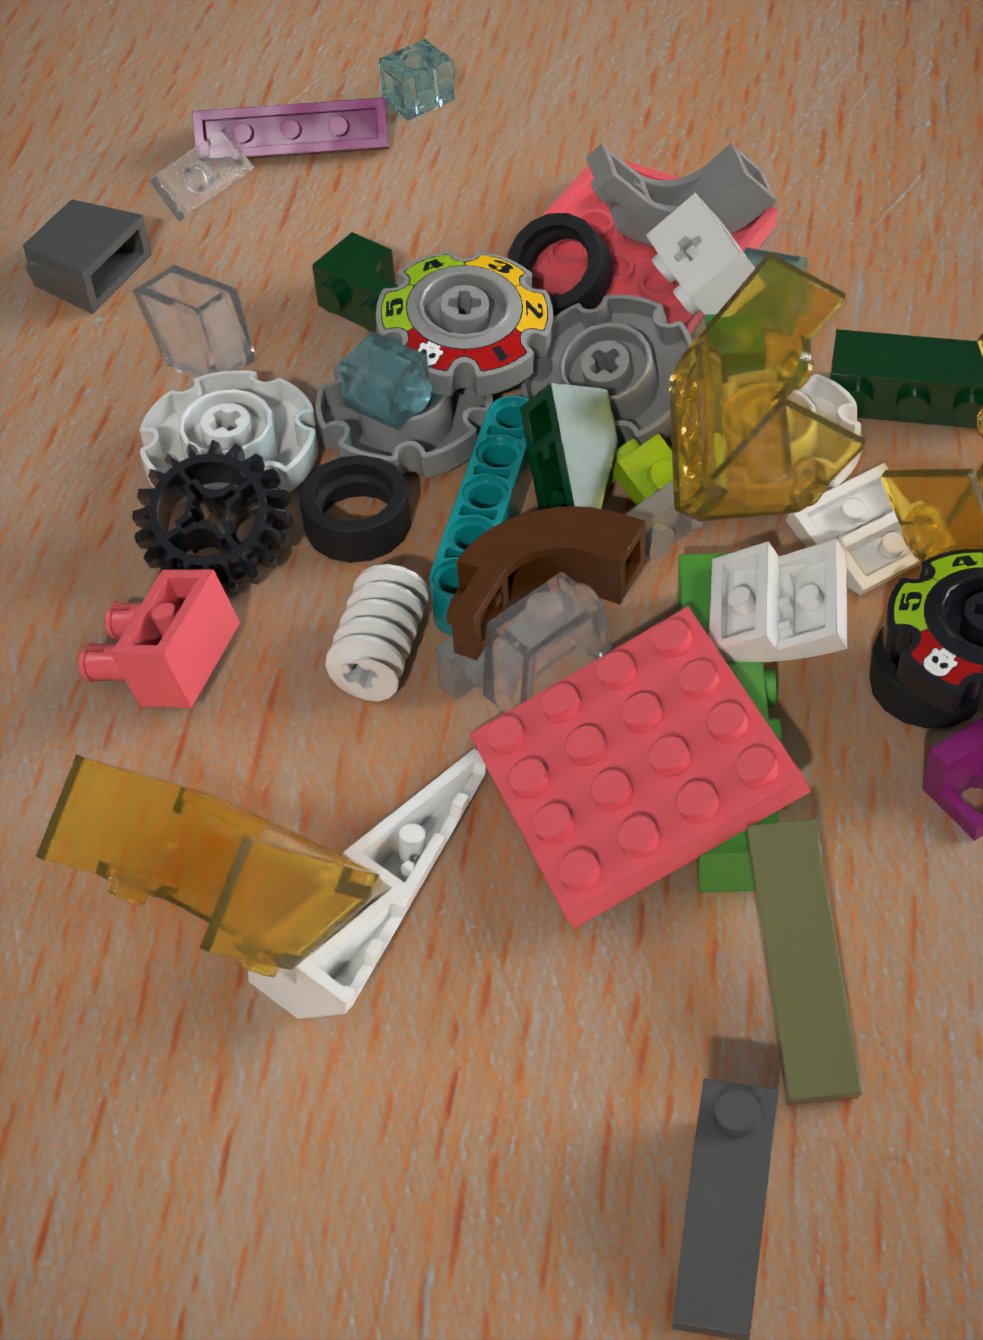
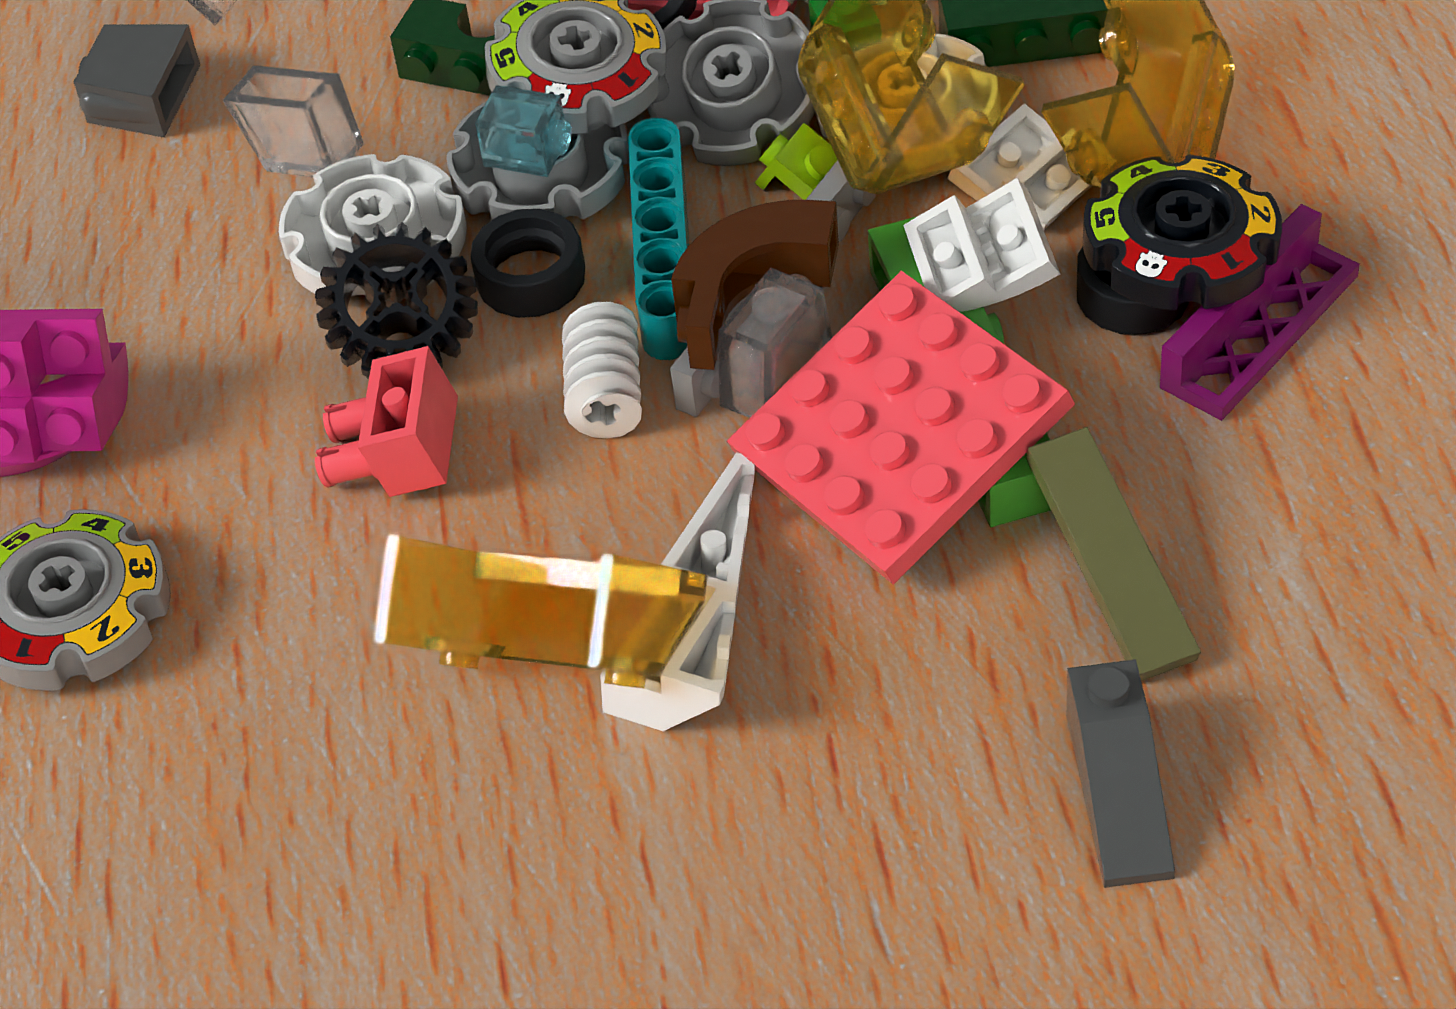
camera: 15 degrees left, 0 degrees up
(570, 444) = (724, 152): slope -> none

